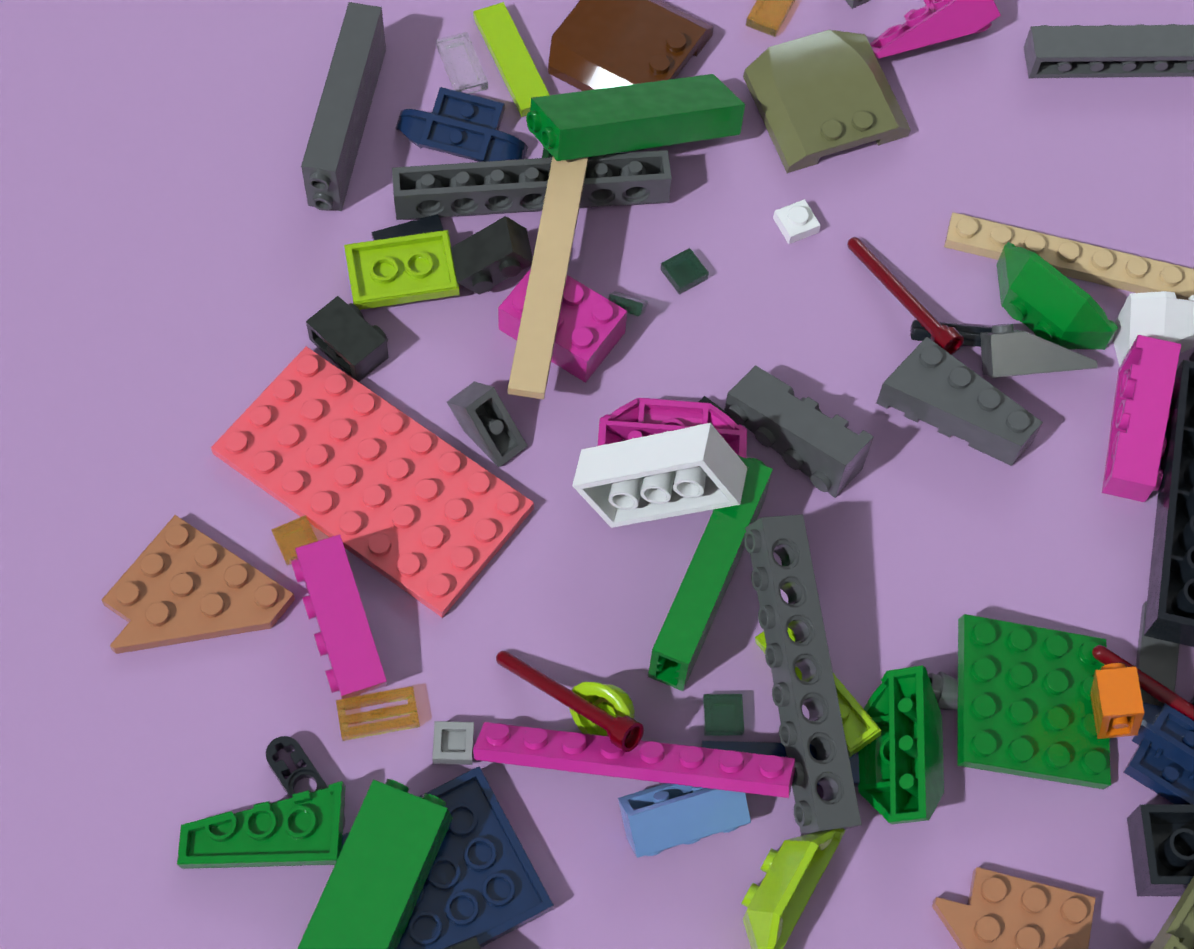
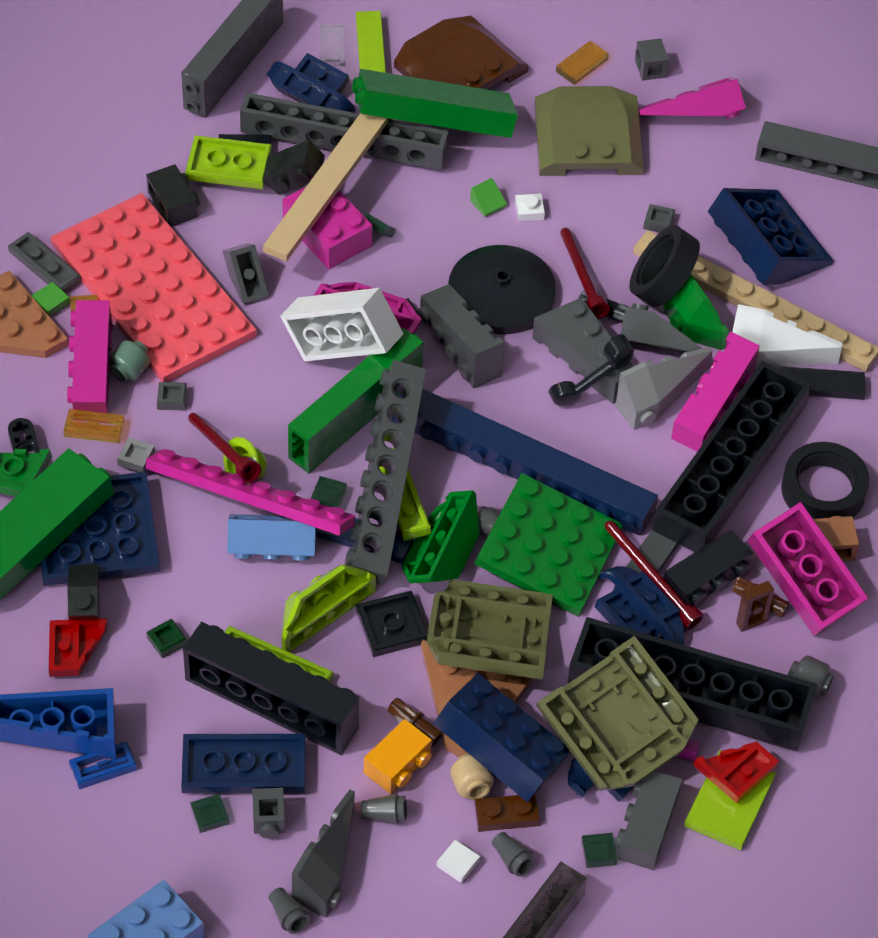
camera: 20 degrees right, 10 degrees down
(217, 488) = (44, 262): none -> dark grey tile
(246, 539) = (51, 298): none -> bright green tile
(389, 603) = (129, 360): none -> sand green head
(462, 634) = (171, 396): none -> dark grey tile
(684, 271) = (432, 217): clear green tile -> none
(742, 224) = (487, 197): none -> bright green slope
(815, 343) = (504, 286): none -> black dish
(883, 883) = (392, 623): none -> black tile
(956, 192) = (658, 218): none -> dark grey tile
(972, 588) = (517, 453): none -> dark blue brick
(1017, 410) = (618, 353): none -> black piece
(1023, 862) = (490, 628): none -> olive wedge
(1038, 275) = (664, 266): none -> black tyre
(1061, 440) = (652, 388): none -> light grey wedge
(1096, 178) = (768, 234): none -> dark blue slope
(1116, 701) = (597, 548): orange brick -> none

